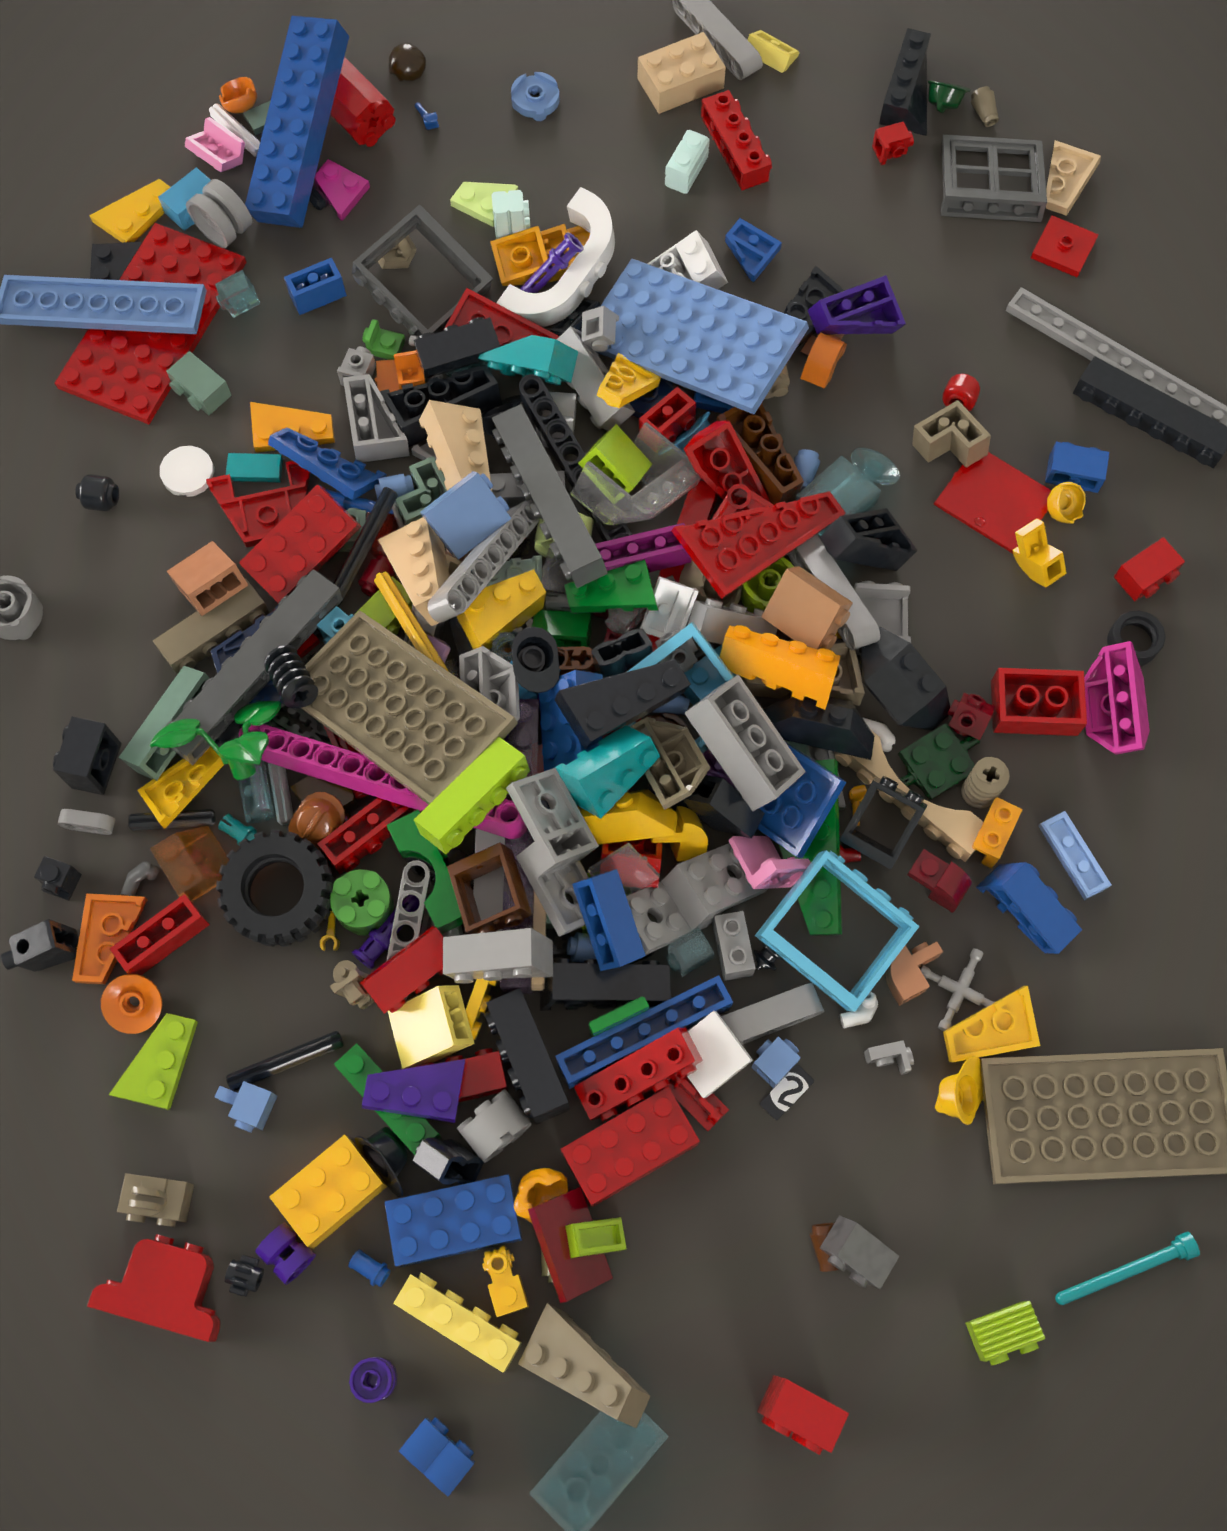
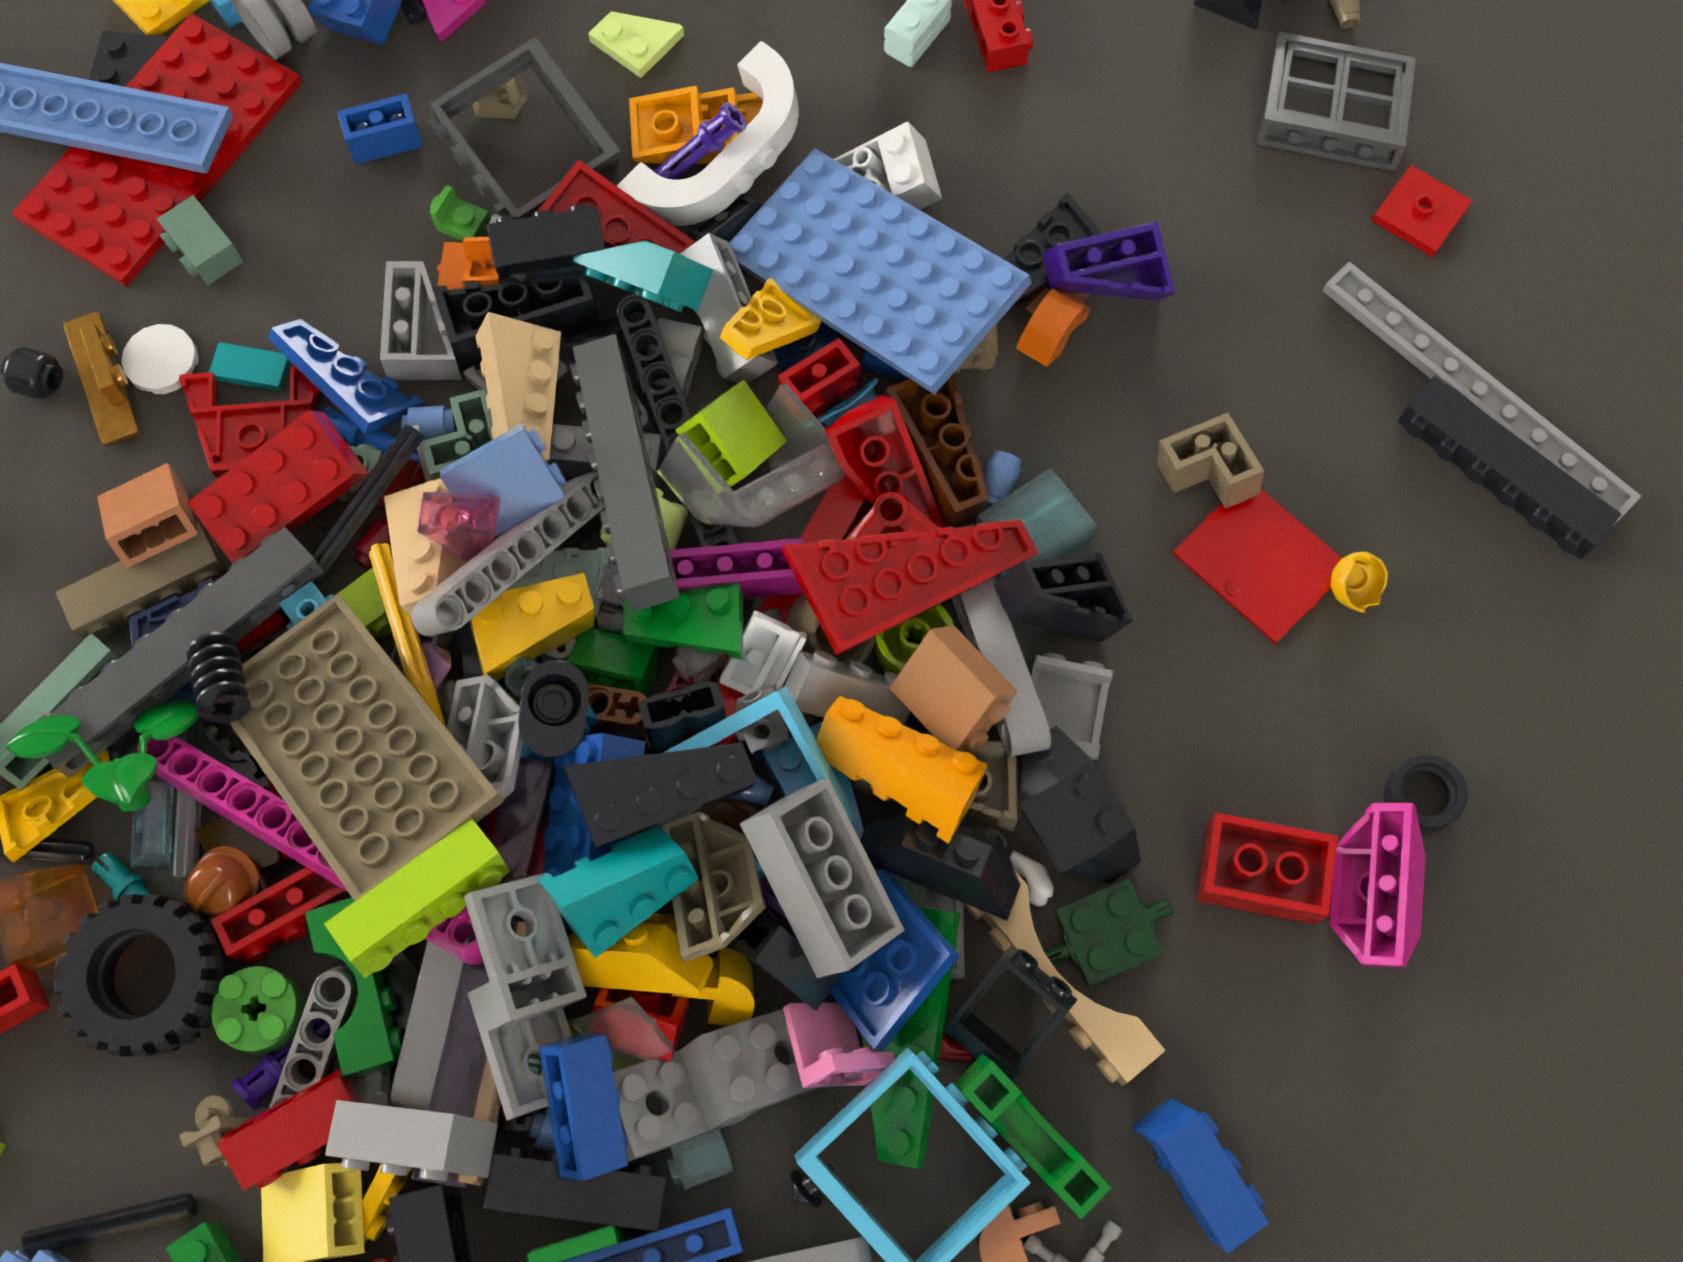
camera: 10 degrees right, 0 degrees up
(148, 489) = (102, 378): none -> pearl gold bracket
(237, 294) = (275, 125): clear light blue brick -> none
(271, 419) = (333, 317): light orange wing -> none
(330, 934) = (212, 1052): yellow hand -> none
(356, 363) = (416, 243): light grey brick -> none
(444, 543) = (459, 521): none -> clear pink wing
(476, 866) = (388, 1037): reddish brown window -> none
(510, 213) = (659, 63): light aqua brick -> none
(599, 328) = (747, 241): light grey brick -> none
(733, 946) = (764, 1161): light grey brick -> none
(751, 247) = (985, 154): blue wing -> none
(856, 795) = (983, 963): light orange hand -> none
(875, 466) = (1097, 489): clear light blue dish -> none
(892, 141) = (1206, 32): red brick -> none
(932, 914) = (1032, 1136): none -> green arch
(945, 880) = (1081, 1114): dark red brick -> none
(962, 388) = (1239, 397): red head -> none
(970, 715) = (1165, 873): dark red brick -> none
(985, 782) = (1183, 982): dark tan piece -> none
(996, 831) = (1171, 1052): light orange bracket -> none
(1036, 557) = (1303, 654): yellow brick -> none
(1068, 176) = (1444, 112): tan wing -> none
(1074, 855) = (1281, 1103): light blue tile -> none
(1077, 465) = (1384, 530): blue brick -> none
(1149, 569) = (1461, 696): red brick -> none

